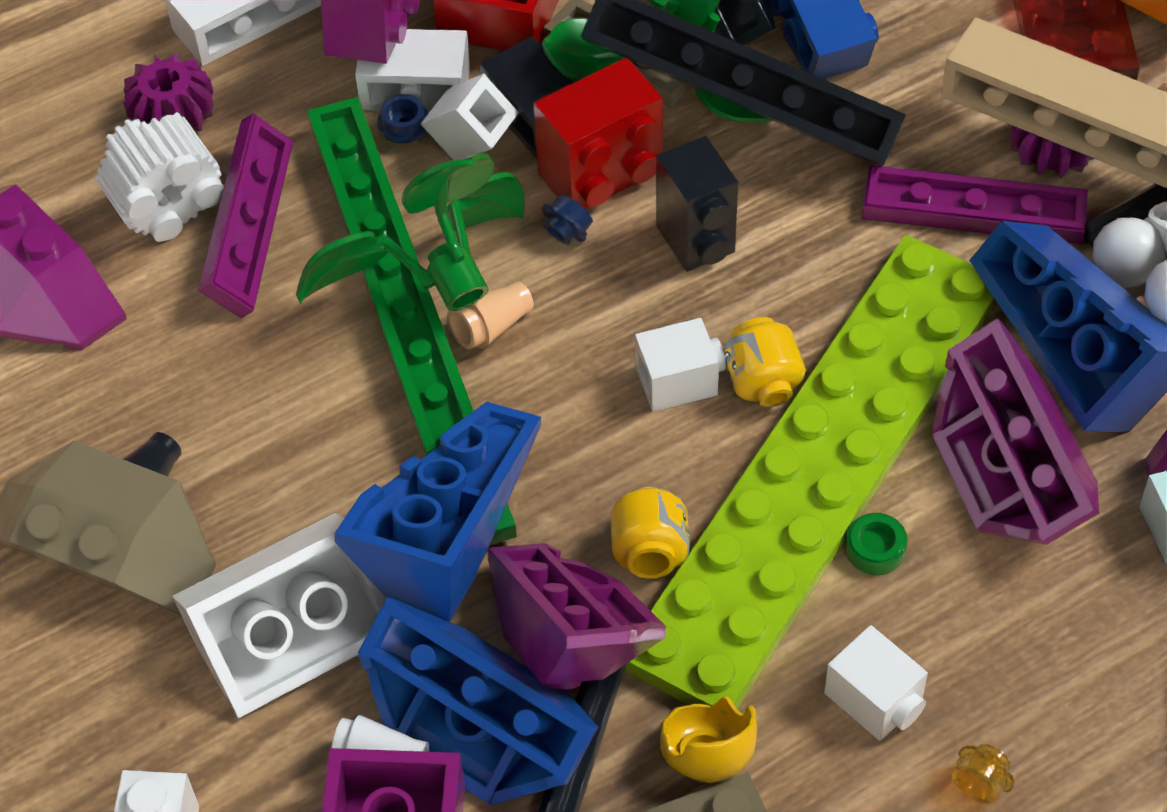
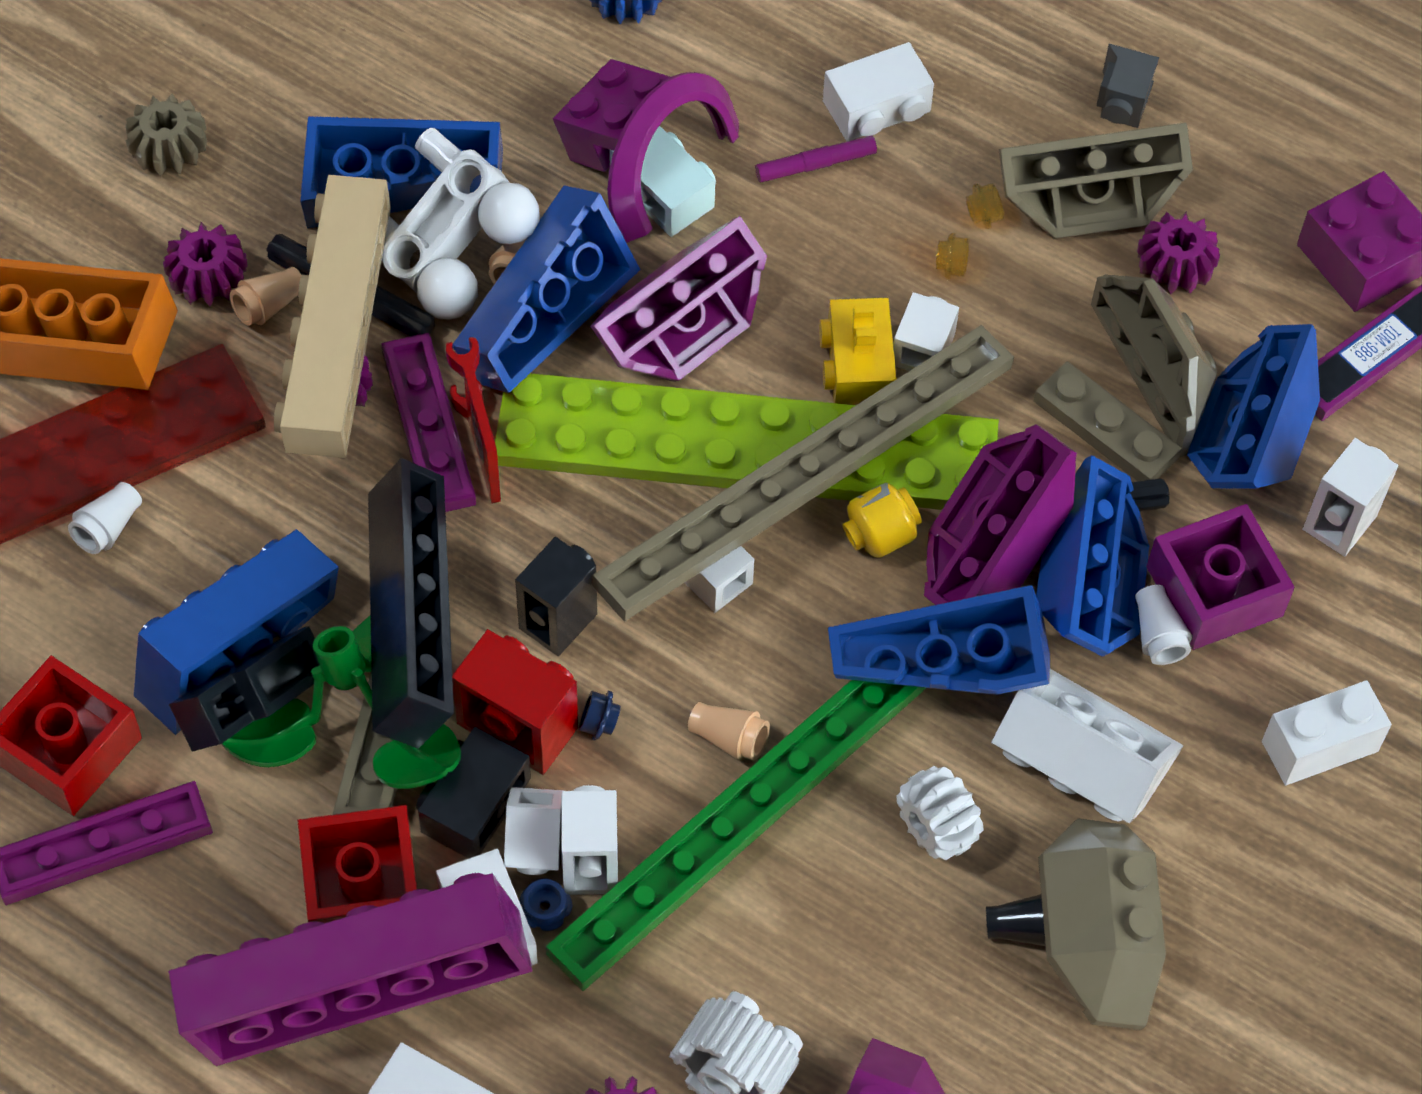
camera: 120 degrees left, 5 degrees up
(246, 216) = (723, 975): magenta tile -> none
(285, 429) = (940, 812): none -> white gear
(420, 131) = (589, 840): none -> white brick
(475, 198) = (734, 725): green plant -> none
(707, 742) = (1028, 402): yellow hair -> none
(736, 480) = (800, 473): none -> dark tan plate
(763, 361) = (677, 496): yellow head -> none
(876, 543) = (798, 380): green tile -> none
(892, 597) = (859, 348): none -> yellow brick
(931, 204) = (474, 412): none -> red flag

